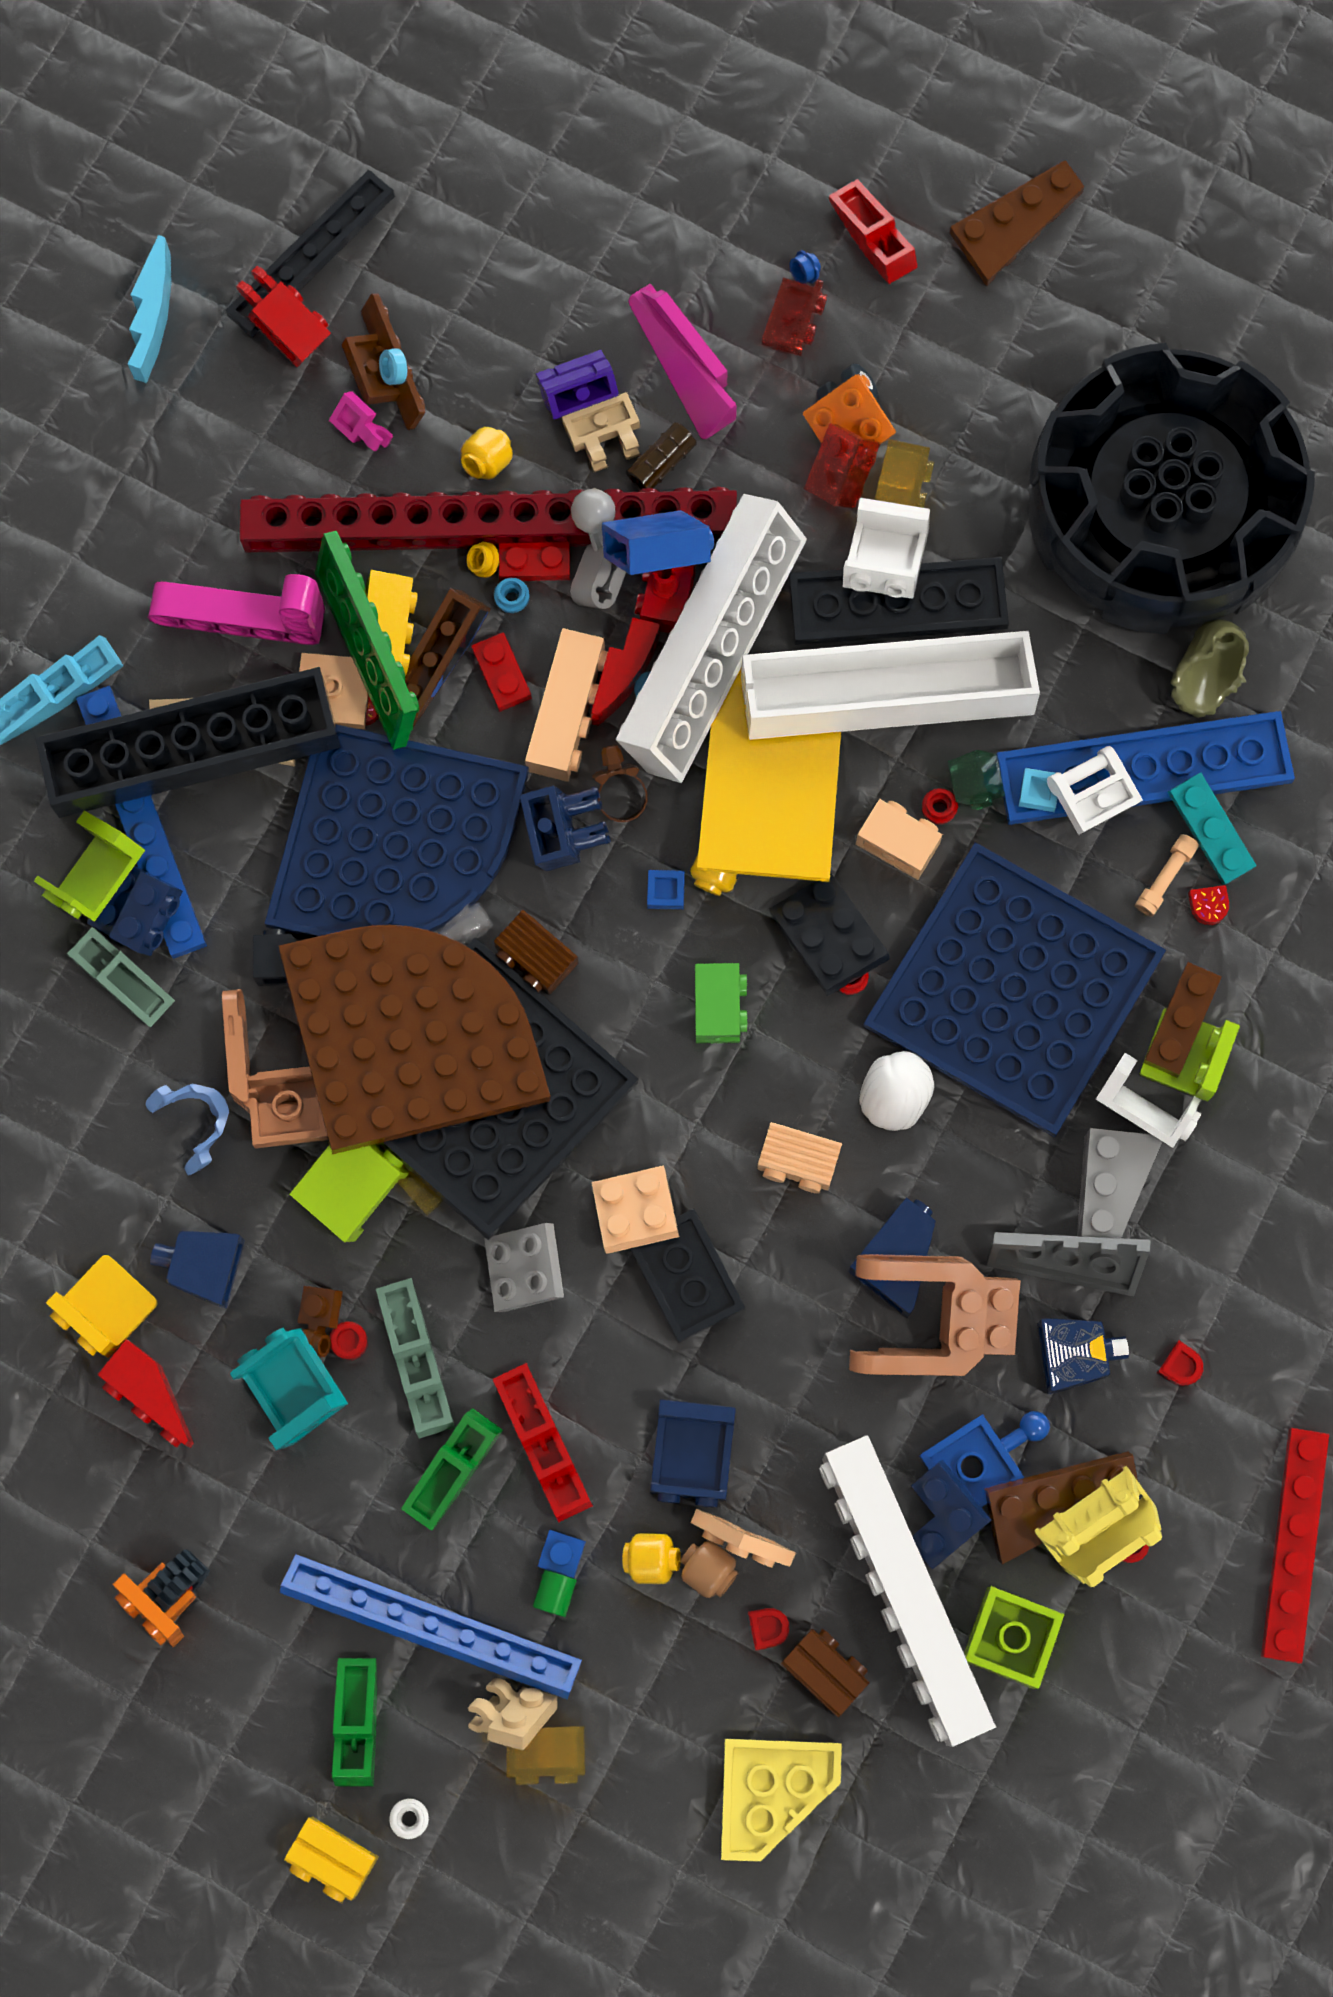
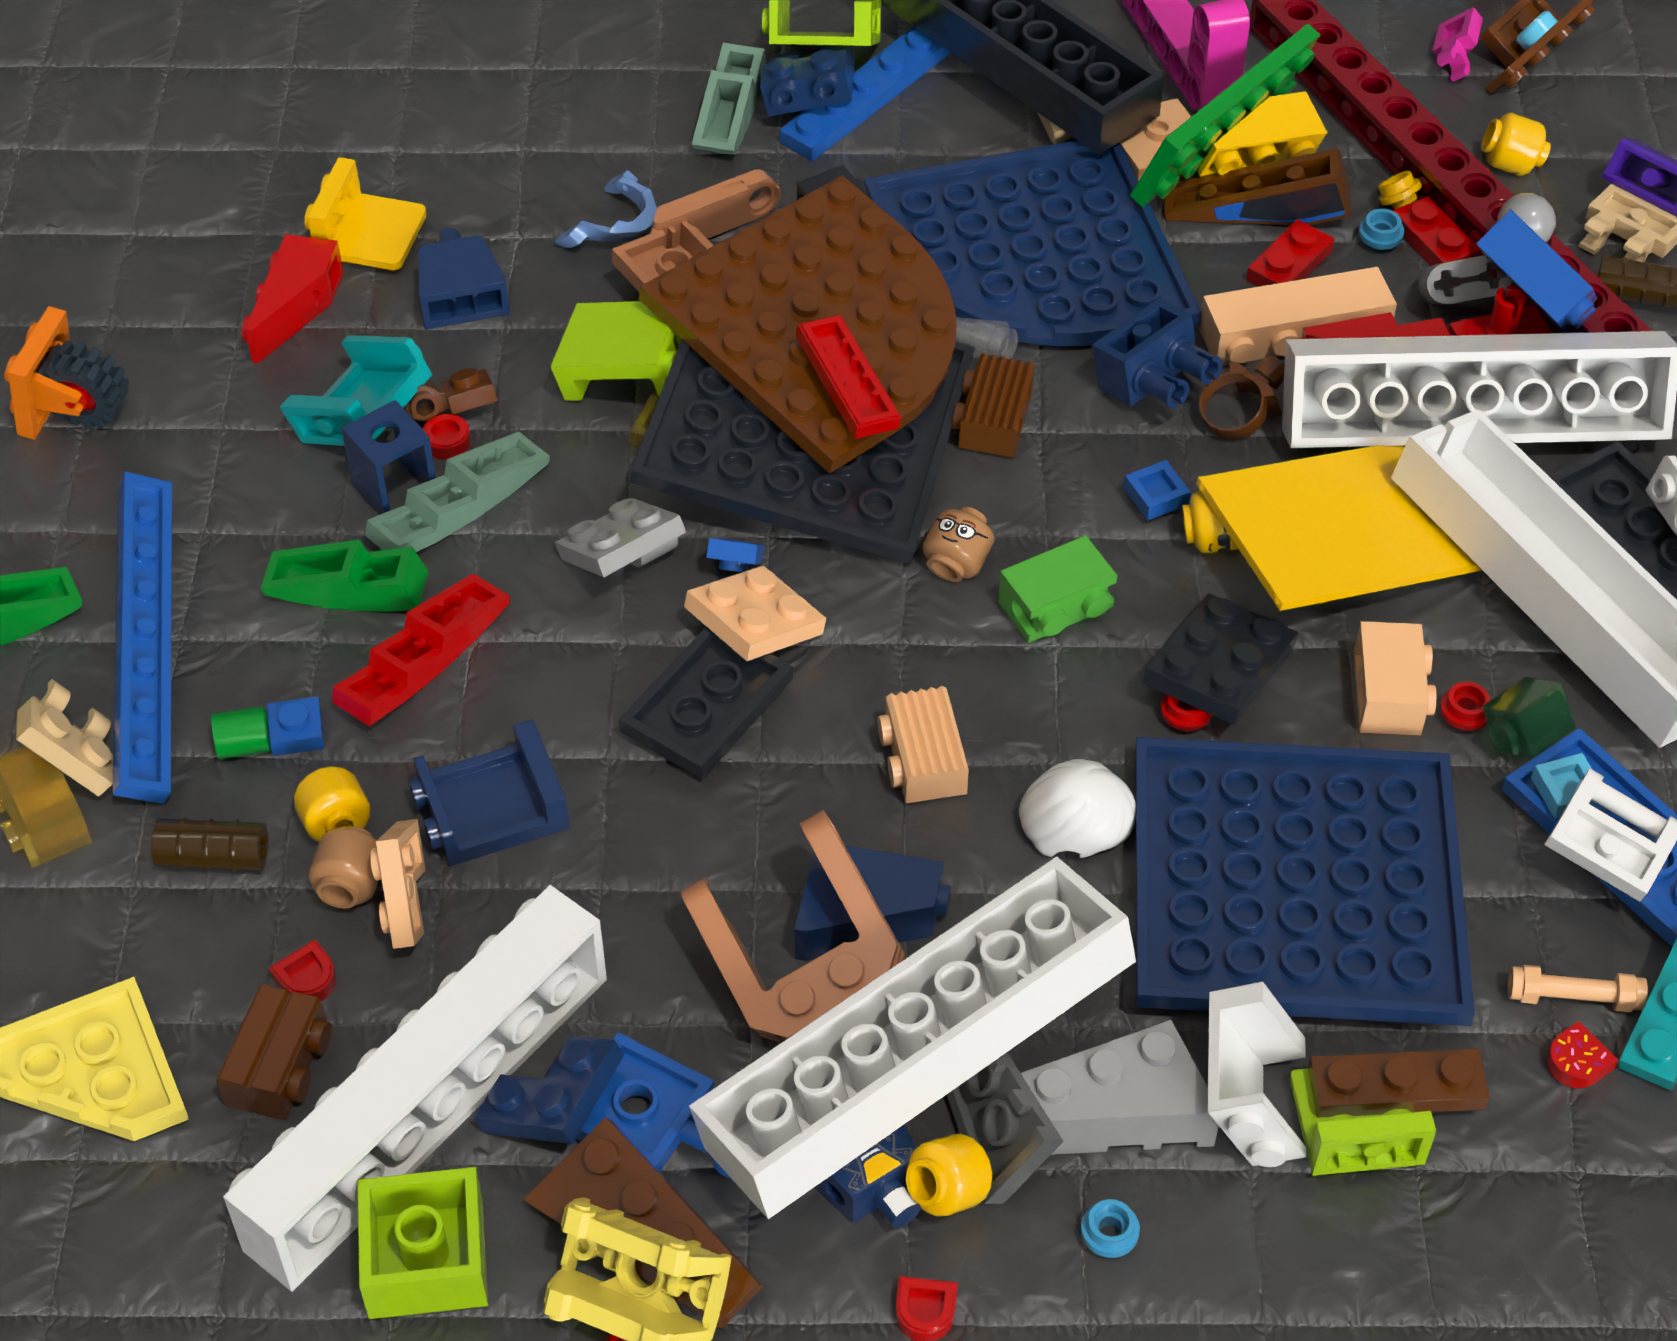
camera: 60 degrees right, 25 degrees down
(383, 1407) = (368, 456): none -> dark blue piece
(494, 1050) = (848, 376): none -> red plate
(572, 1195) = (735, 554): none -> blue plate
(639, 1650) = (209, 844): none -> dark brown axle
(646, 1046) = (958, 544): none -> medium nougat head
(1044, 1286) = (912, 1035): none -> white brick
(1119, 1310) = (949, 1174): none -> yellow head
(1196, 1229) = (1114, 1214): none -> dark azure plate

